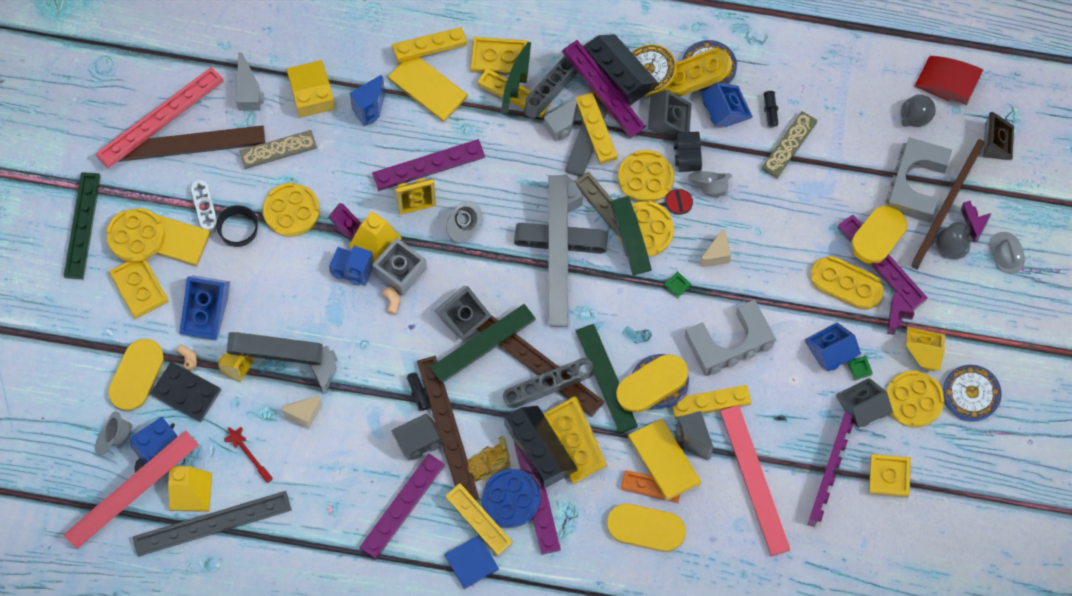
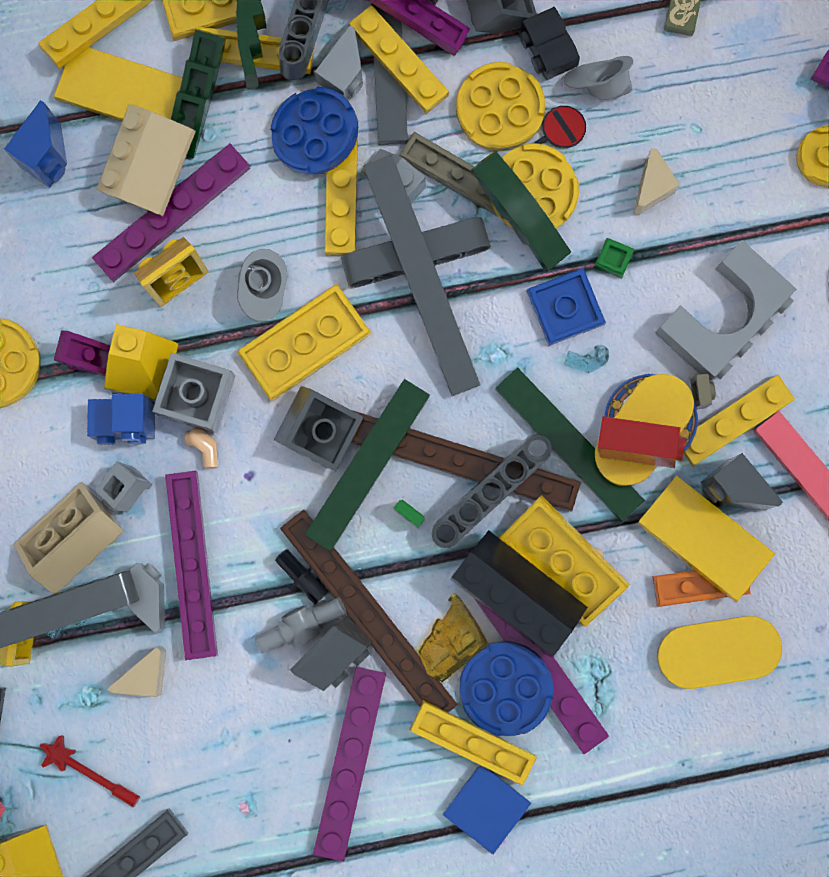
camera: 20 degrees left, 15 degrees up
(294, 318) = (67, 539): none -> tan slope
(335, 303) = (122, 487): none -> light grey brick
(357, 361) = (191, 565): none -> magenta plate
(402, 416) = (300, 625): none -> light grey pin
(426, 129) = (146, 159): none -> tan slope
(470, 104) = (198, 84): none -> dark green slope
(475, 264) = (304, 342): none -> yellow tile
(496, 380) = (409, 513): none -> green tile
(530, 149) = (314, 131): none -> blue tile
(531, 191) = (341, 206): none -> yellow plate
(637, 301) = (566, 306): none -> blue tile
(643, 382) = (640, 442): none -> red brick
(698, 377) = (702, 391): none -> dark tan plate

